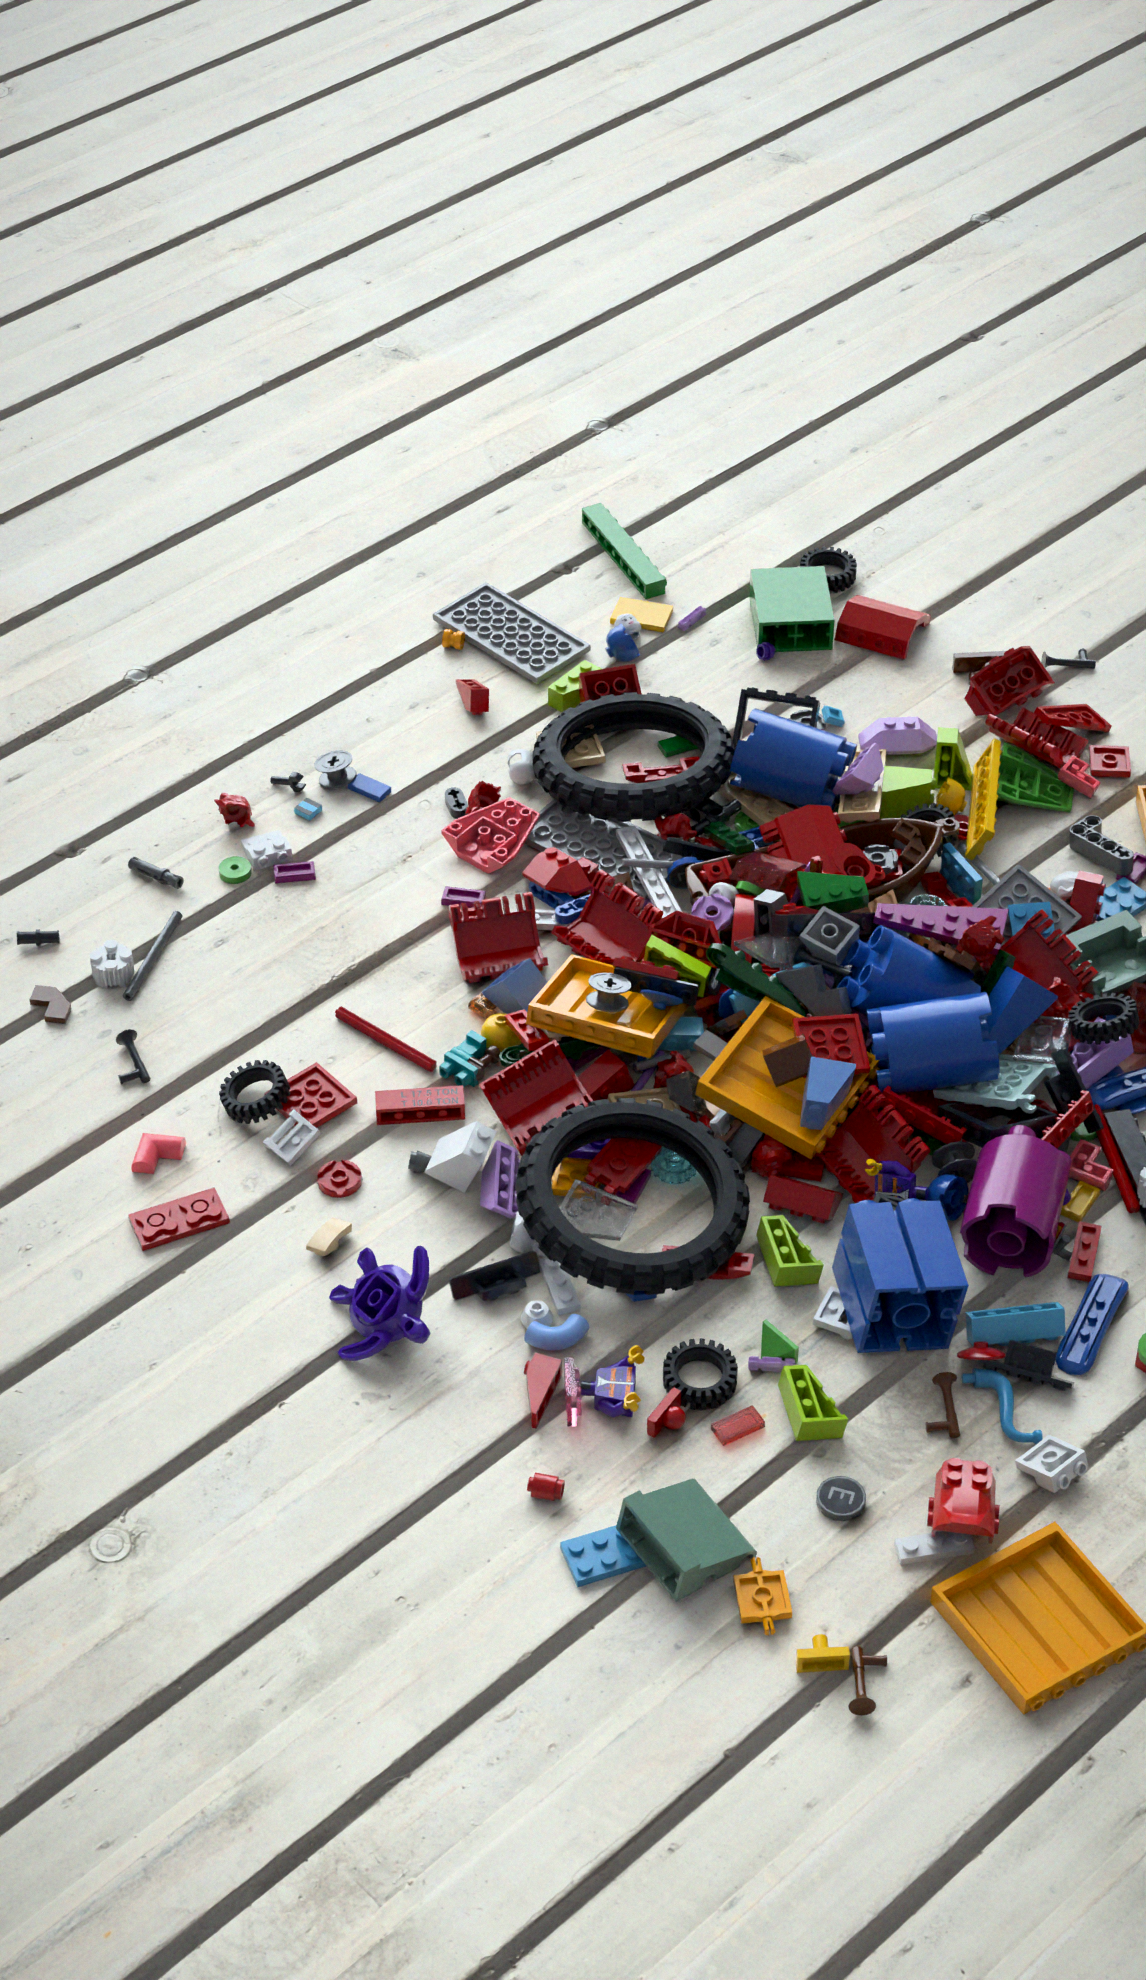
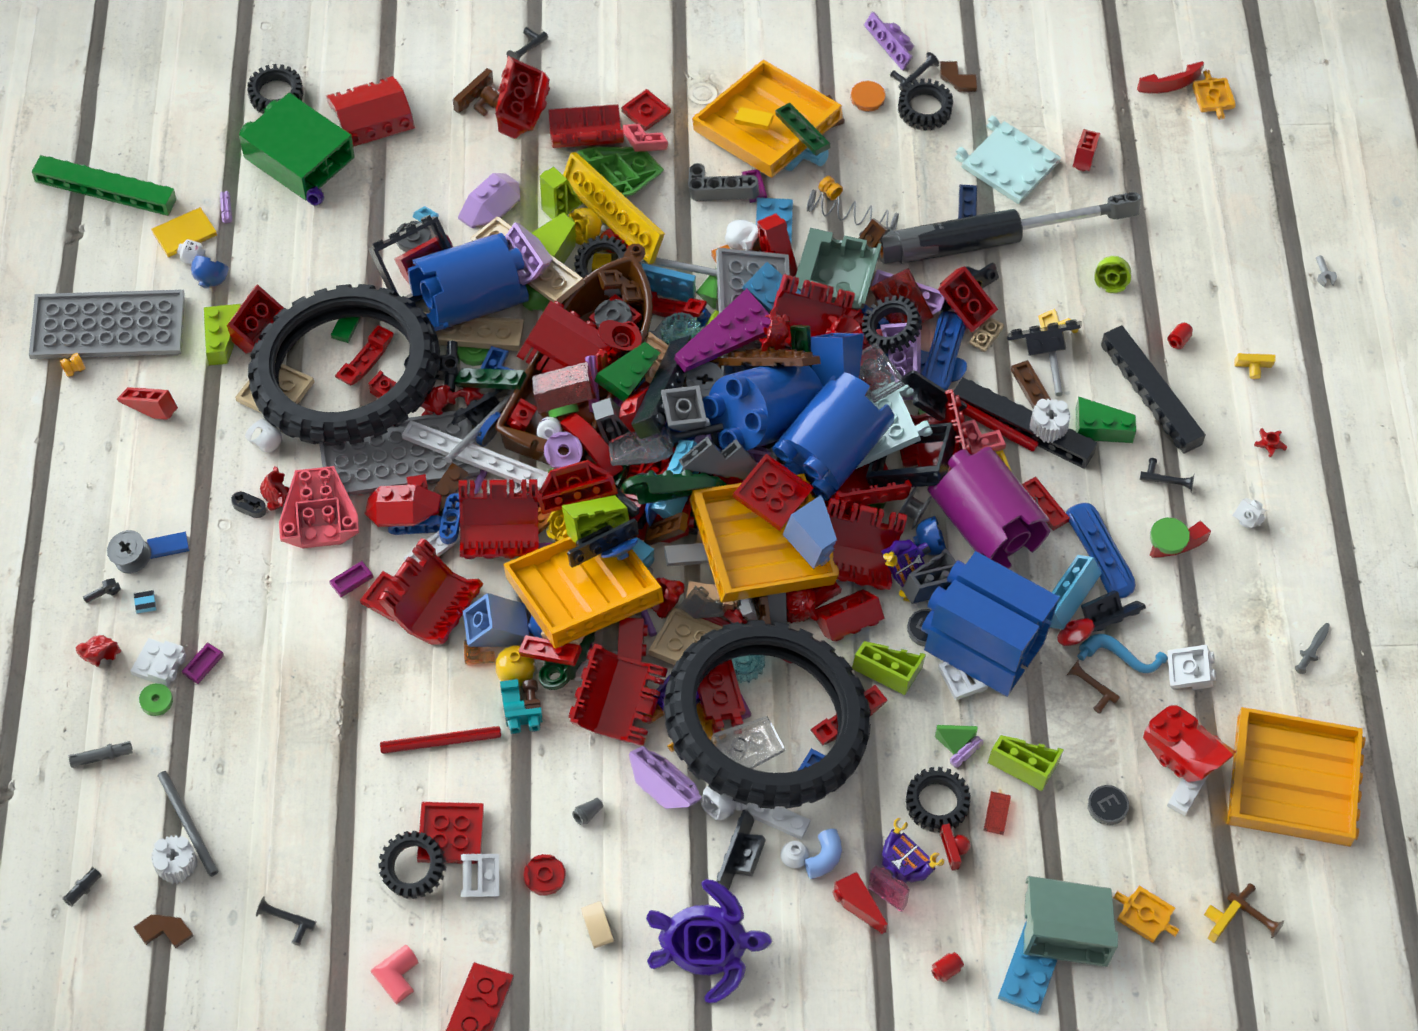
camera: 50 degrees left, 15 degrees up
(420, 1105) = (531, 769): brick -> none
(460, 1155) = (617, 783): white slope -> none
(608, 992) = (584, 575): piece -> none
(646, 967) = (585, 535): red plate -> none
(788, 1060) = (763, 525): reddish brown slope -> none
(1073, 716) = (589, 92): red wing -> none

